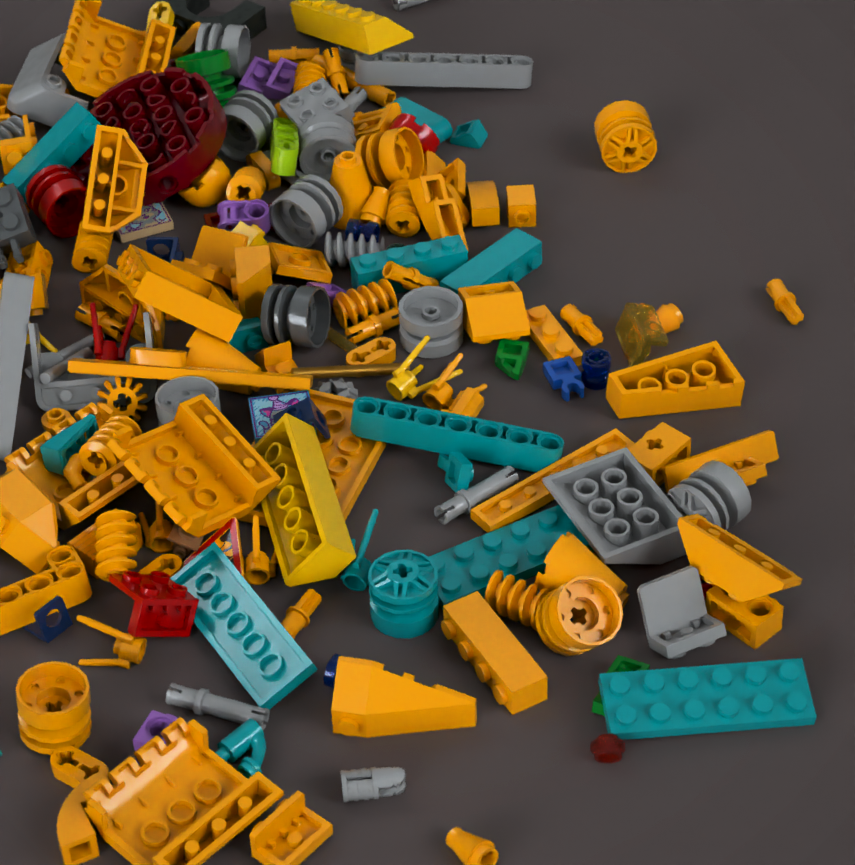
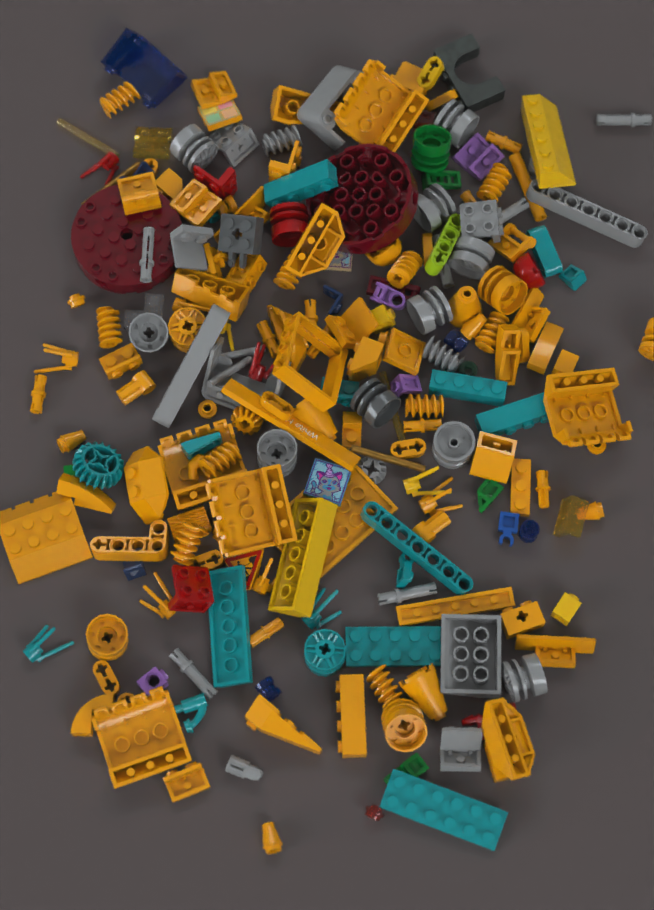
camera: 25 degrees right, 30 degrees up
(307, 412) = (335, 494): dark blue bracket -> none
(336, 72) = (517, 181): light orange pin -> none
(409, 278) = (460, 401): light orange pin -> none
(567, 217) = (584, 408): none -> light orange slope
(618, 263) = (597, 450): none -> light orange plate
(676, 383) = (567, 571): light orange wedge -> none
(707, 420) = (566, 608): none -> yellow brick

